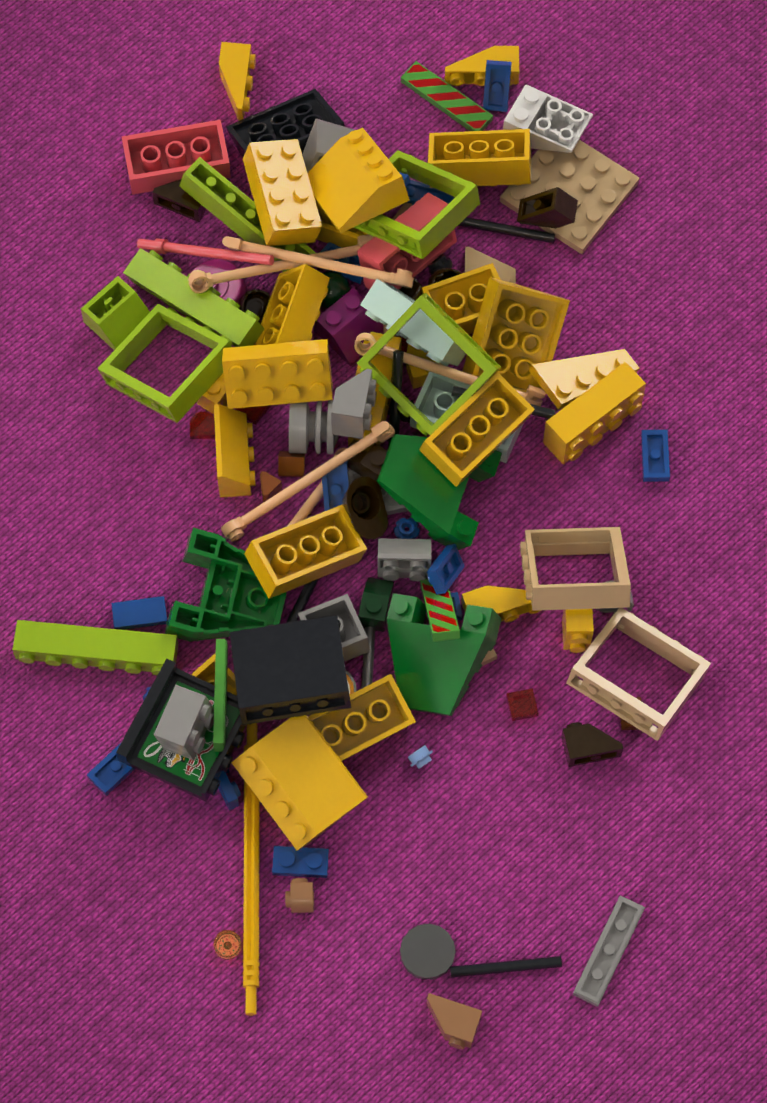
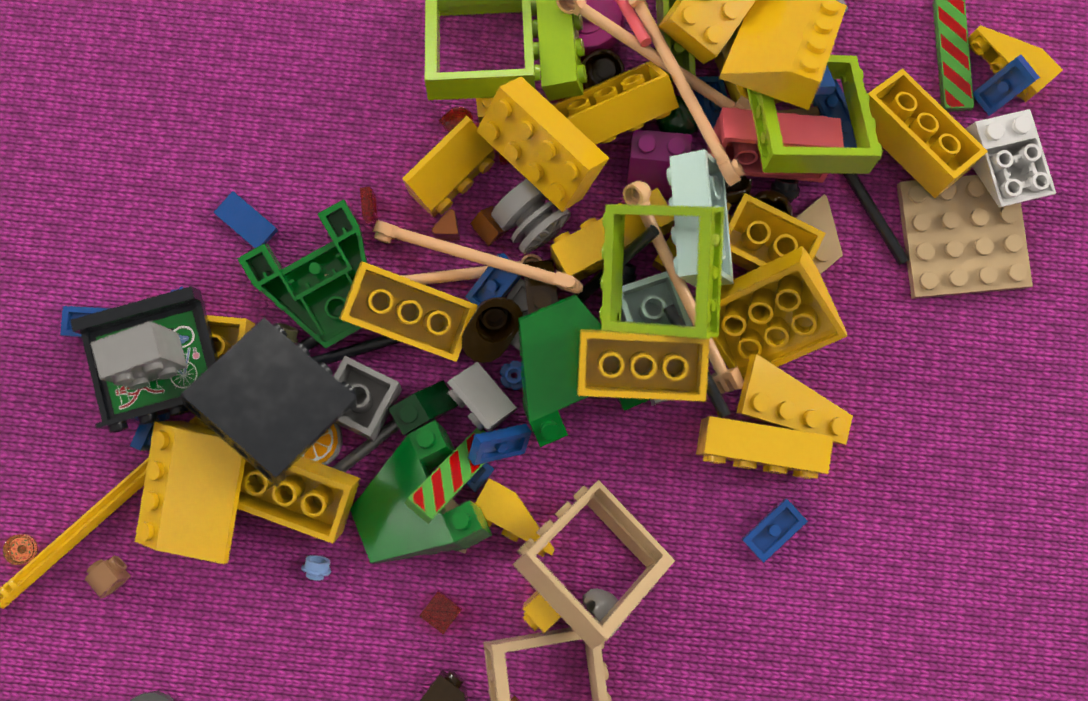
camera: 50 degrees right, 15 degrees up
(93, 647) = (180, 212): lime brick -> none
(205, 522) = (368, 204): none -> clear red tile
(220, 695) = (198, 361): bright green tile -> none
(301, 862) = (145, 560): blue plate -> none
(353, 406) = (563, 236): light grey slope -> none
(548, 209) = (924, 235): dark brown slope -> none

